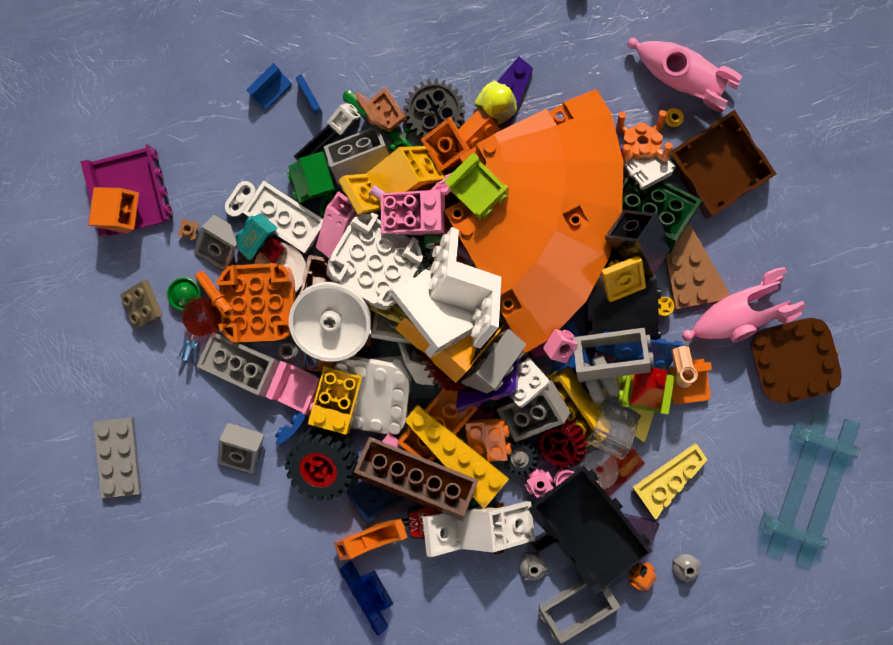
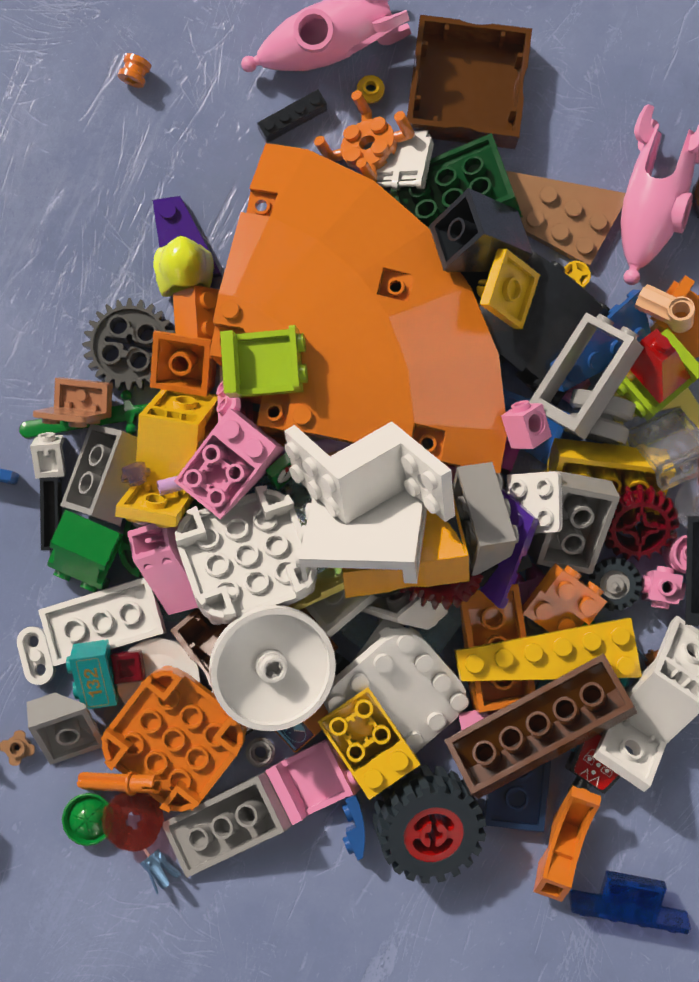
camera: 50 degrees left, 5 degrees down
(141, 304) = (56, 881): dark tan plate -> none
(240, 448) = (327, 908): light grey slope -> none
(368, 171) = (135, 474): none -> plate
(624, 89) = (292, 116): none -> black piece

